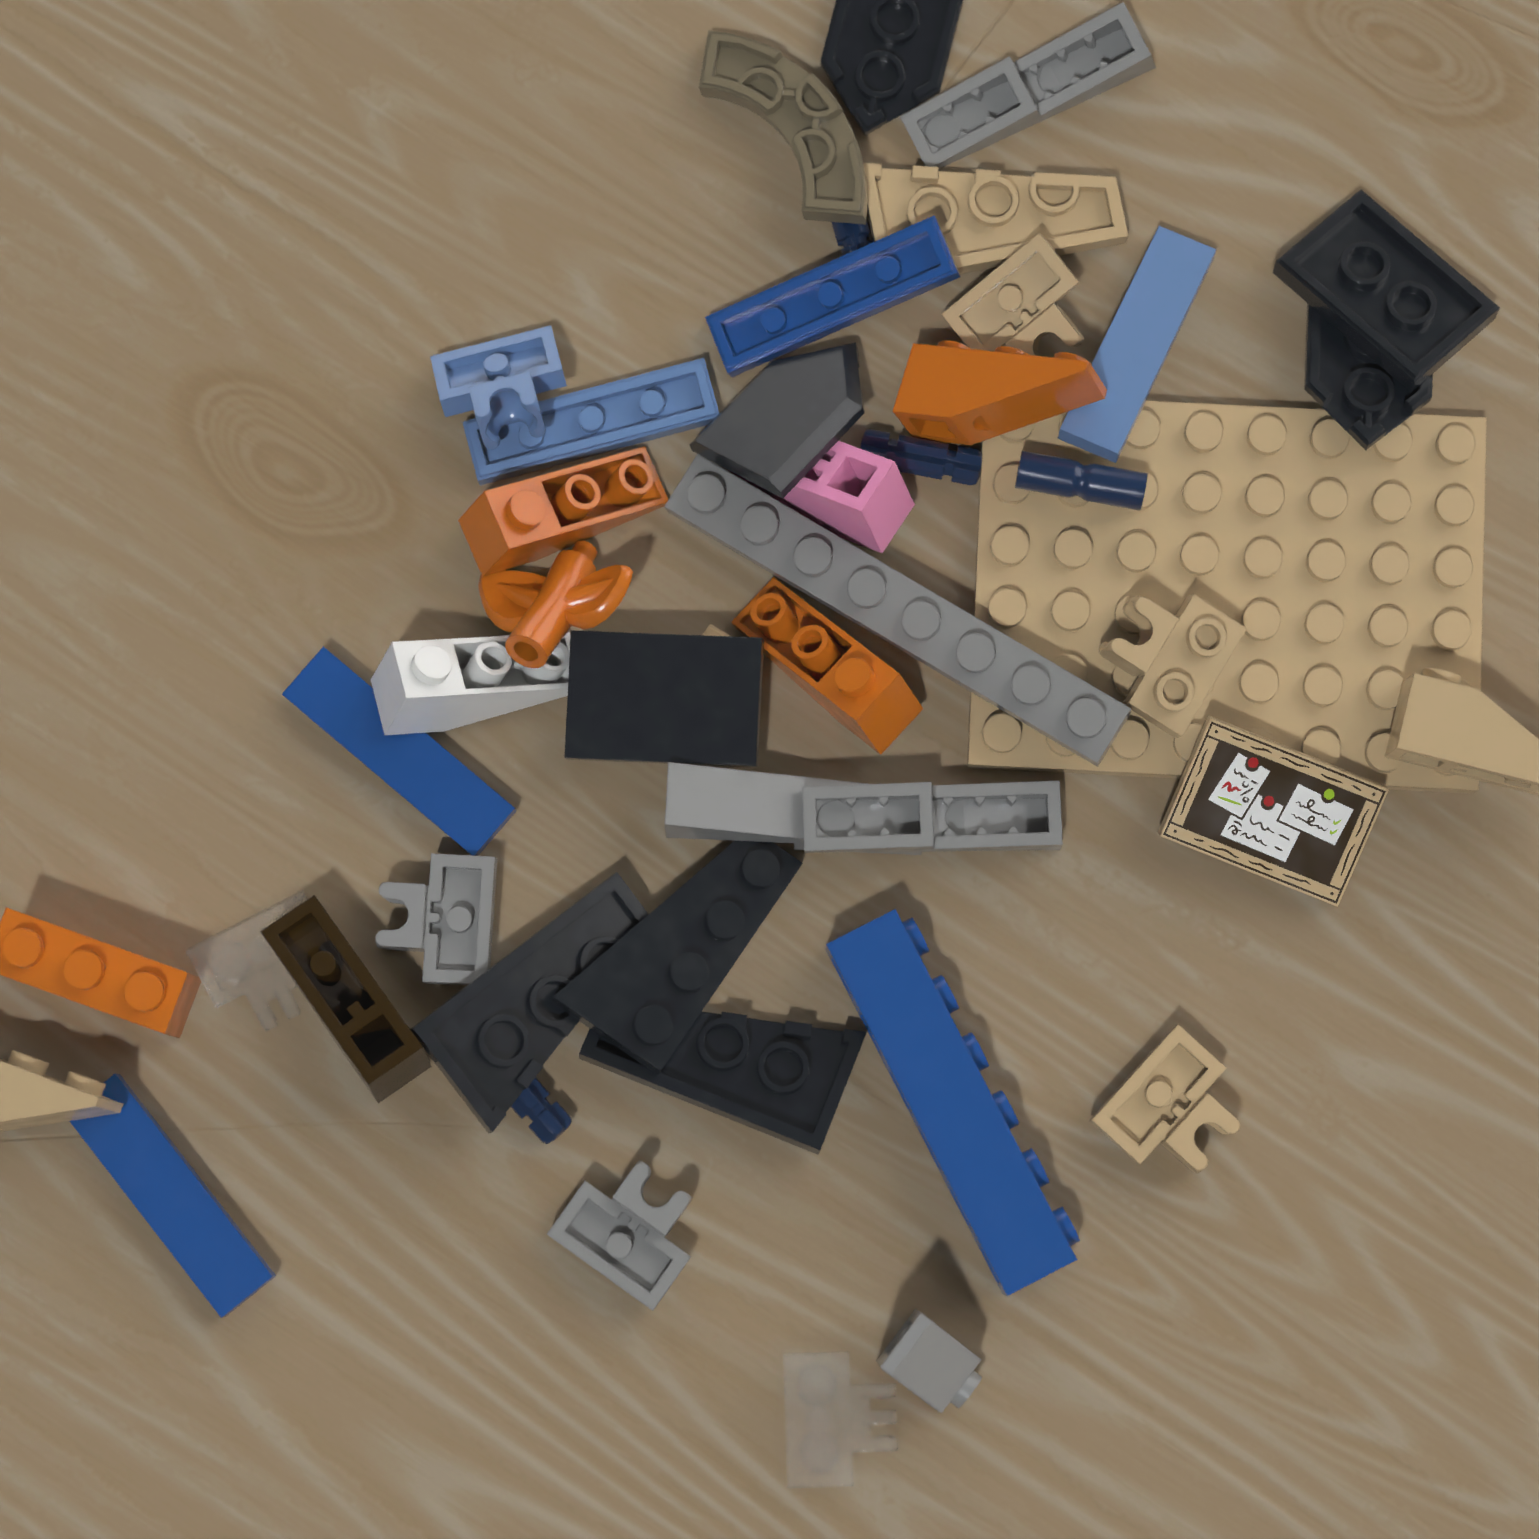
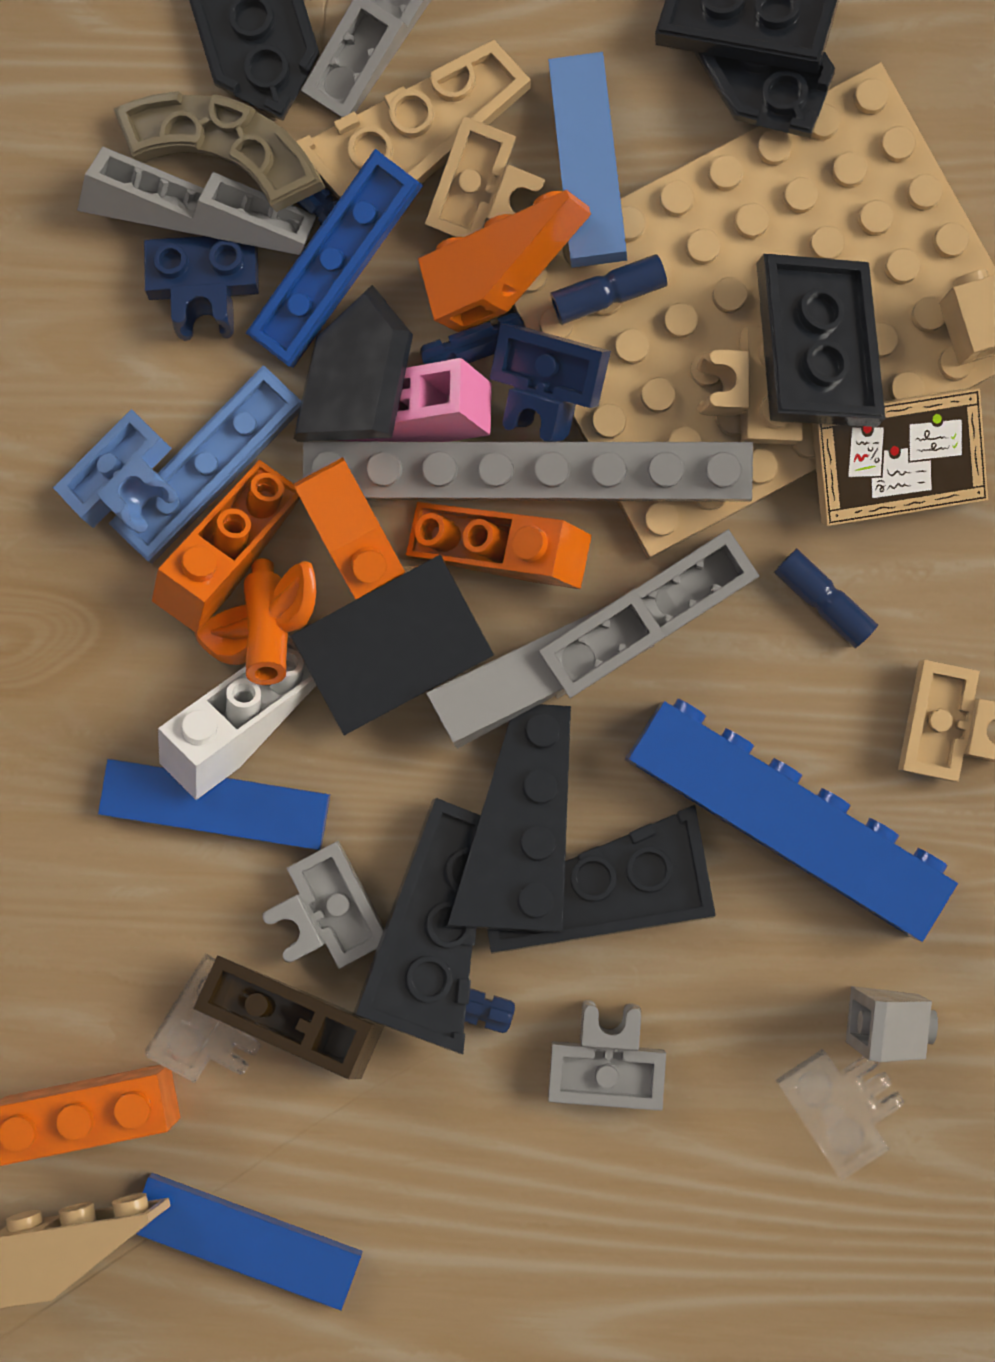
camera: 30 degrees left, 5 degrees up
(690, 561) = (349, 528): none -> orange slope
(695, 239) = (200, 279): none -> dark blue plate
(753, 187) = (222, 210): none -> light grey slope
(970, 532) = (547, 378): none -> dark blue plate
(1116, 900) = (830, 602): none -> dark blue piece
(1255, 649) = (820, 341): none -> black tile

